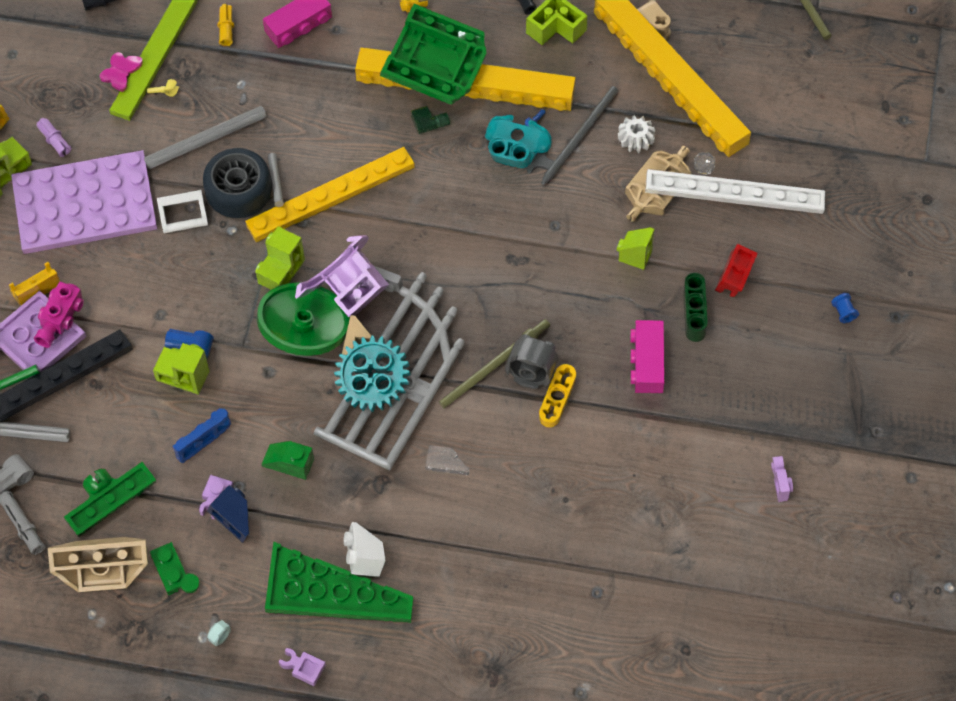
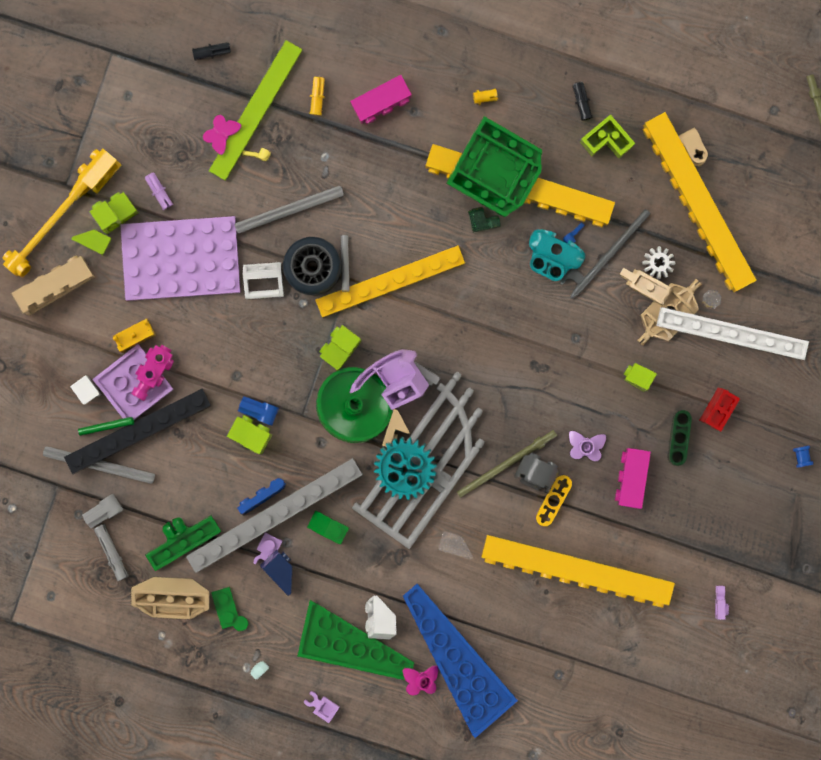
camera: 10 degrees right, 25 degrees up
(218, 453) = (274, 515): none -> light grey brick
(424, 617) = (420, 681): none -> dark pink animal
(487, 610) = (471, 681): none -> blue wing
(586, 332) = (586, 446): none -> lavender animal
(599, 465) = (577, 570): none -> yellow brick
(626, 155) = (647, 285): none -> tan hinge

